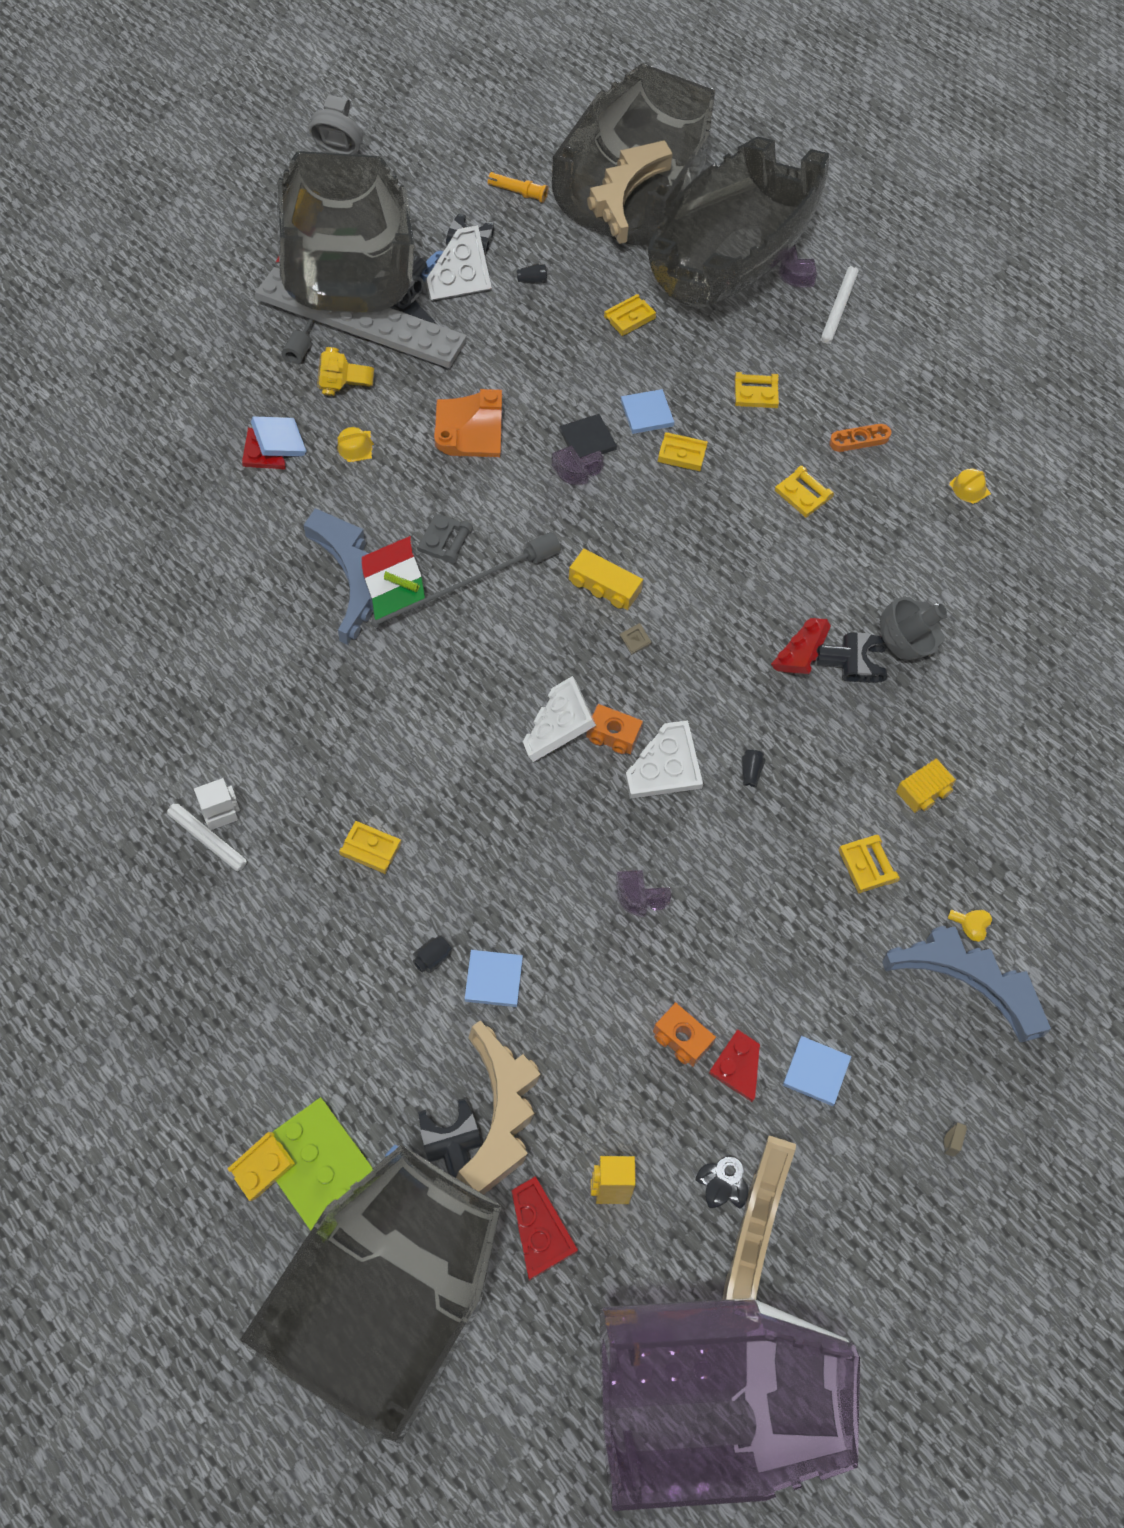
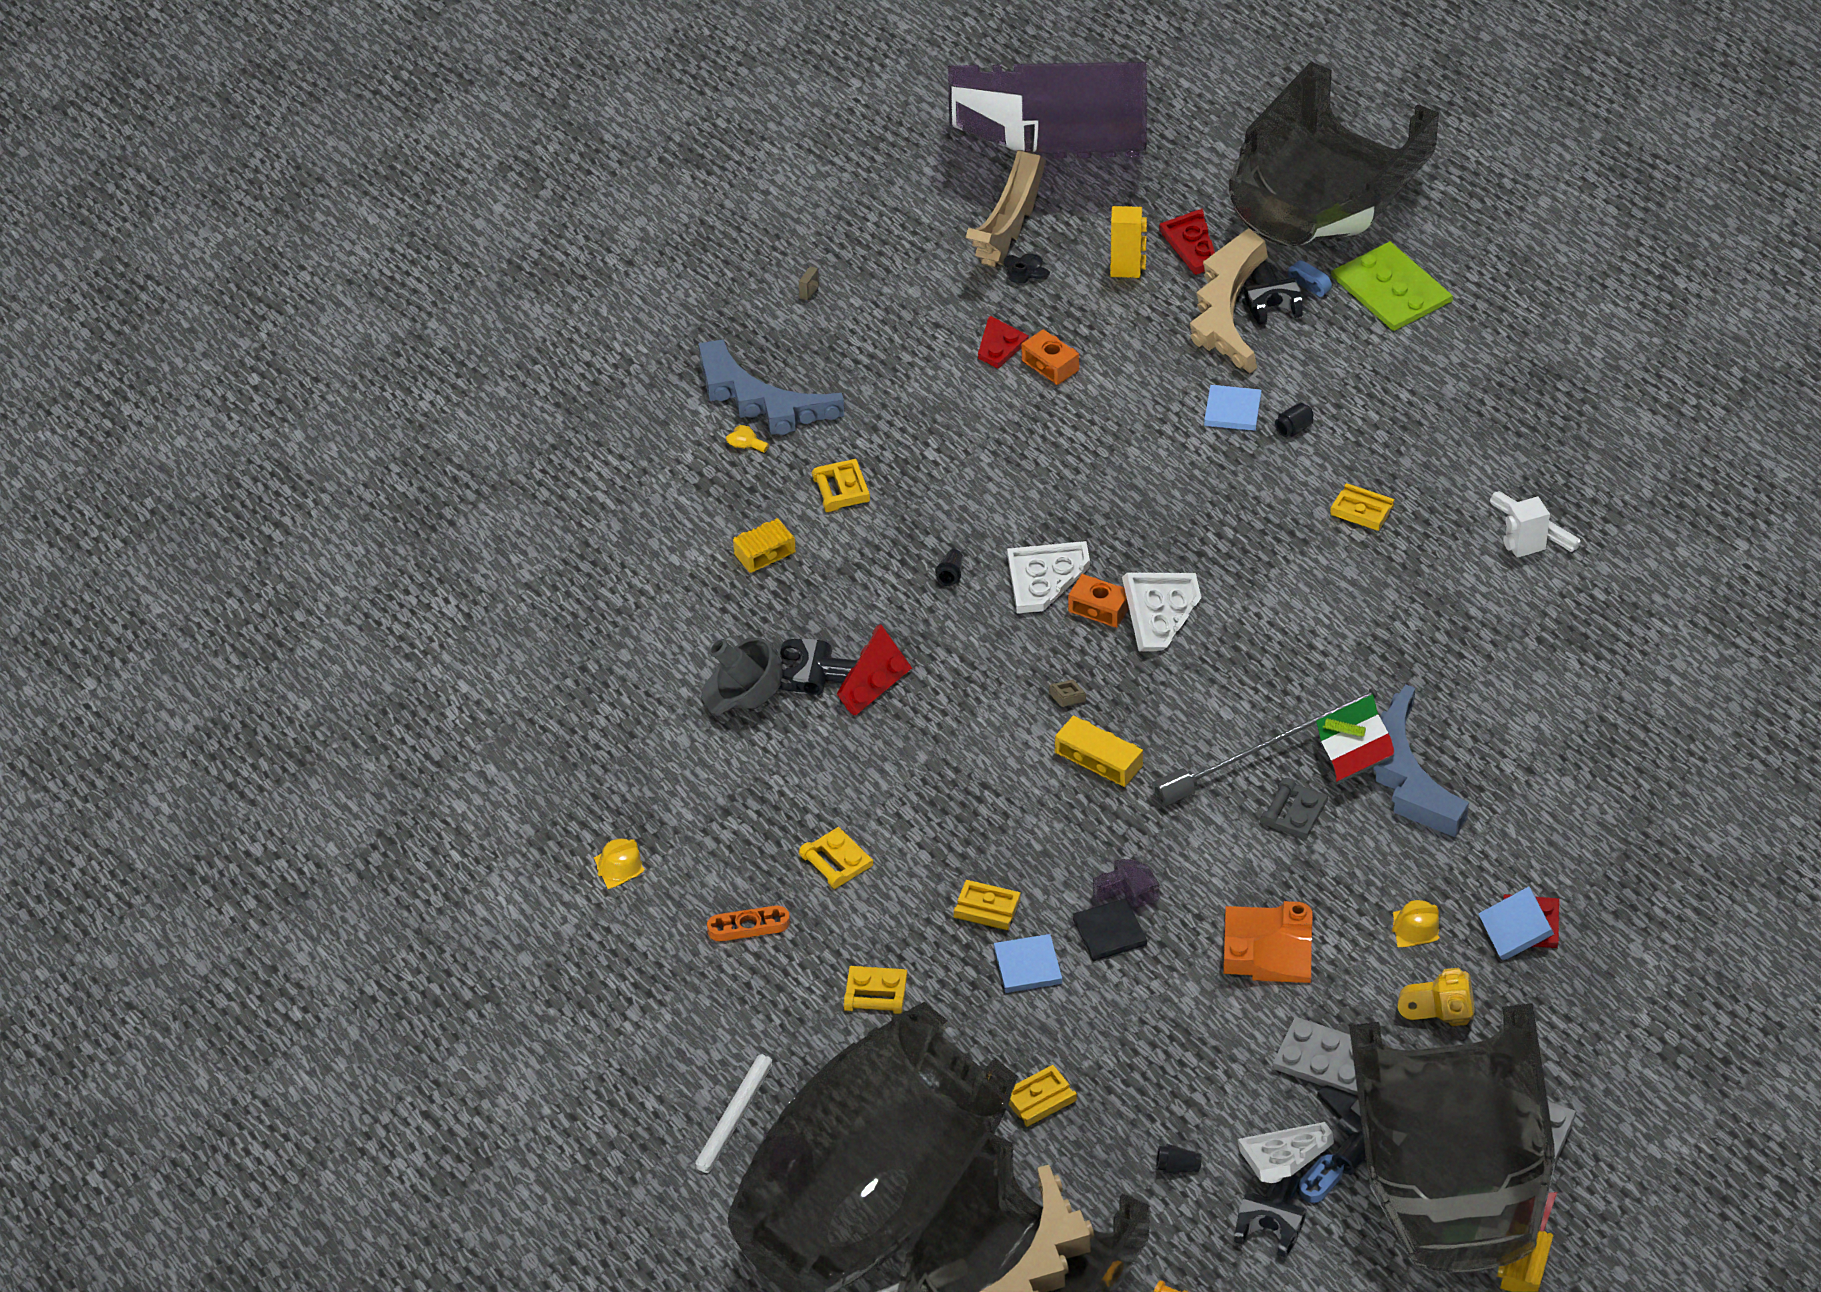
camera: 170 degrees left, 15 degrees down
(261, 1166) = (1442, 279): yellow plate -> none
(635, 897) = (1086, 456): clear purple brick -> none
(817, 1071) = (926, 337): light blue tile -> none

